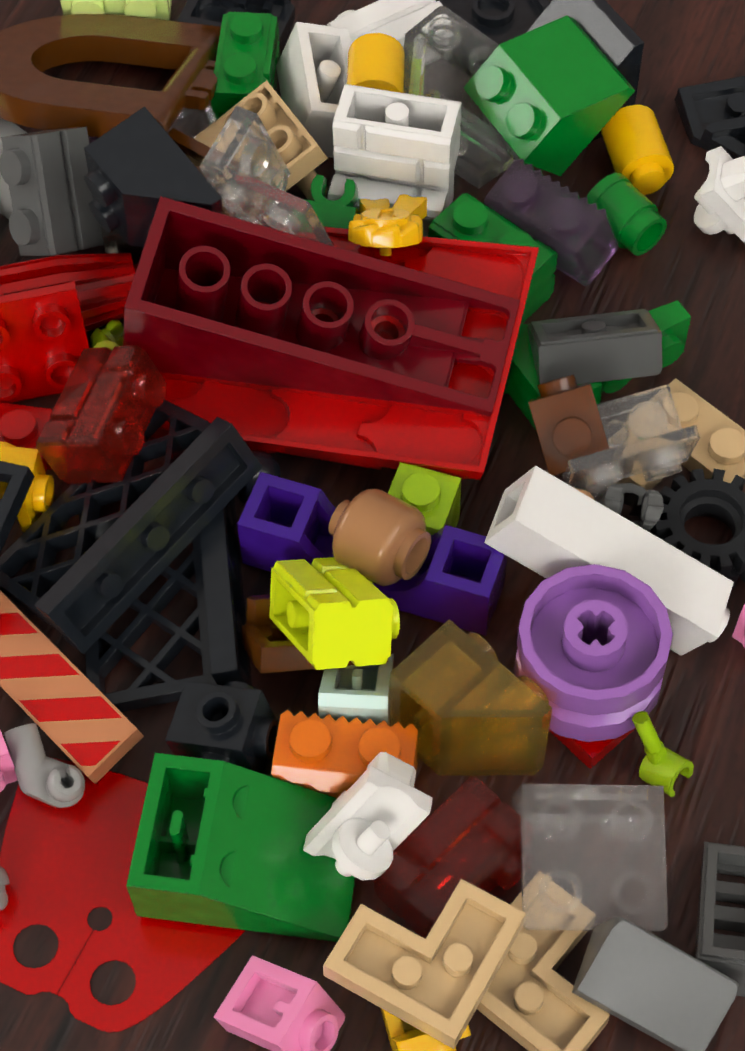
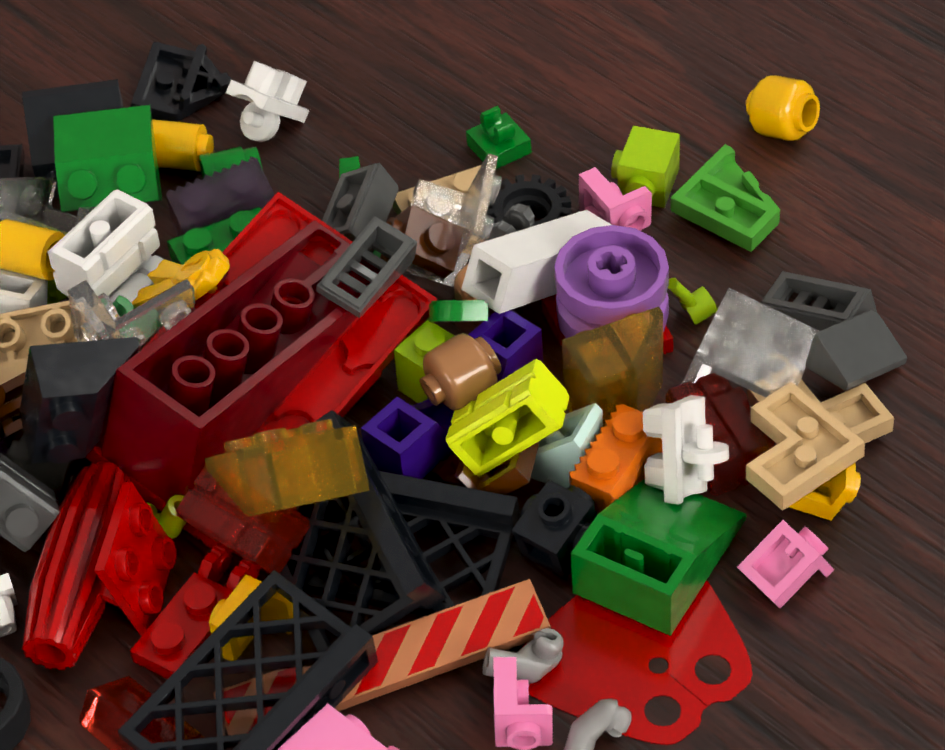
camera: 65 degrees left, 10 degrees down
(117, 415) = (290, 467): none -> clear yellow slope
(468, 498) = (458, 311): none -> green tile
(486, 357) = (385, 240): none -> dark grey slope

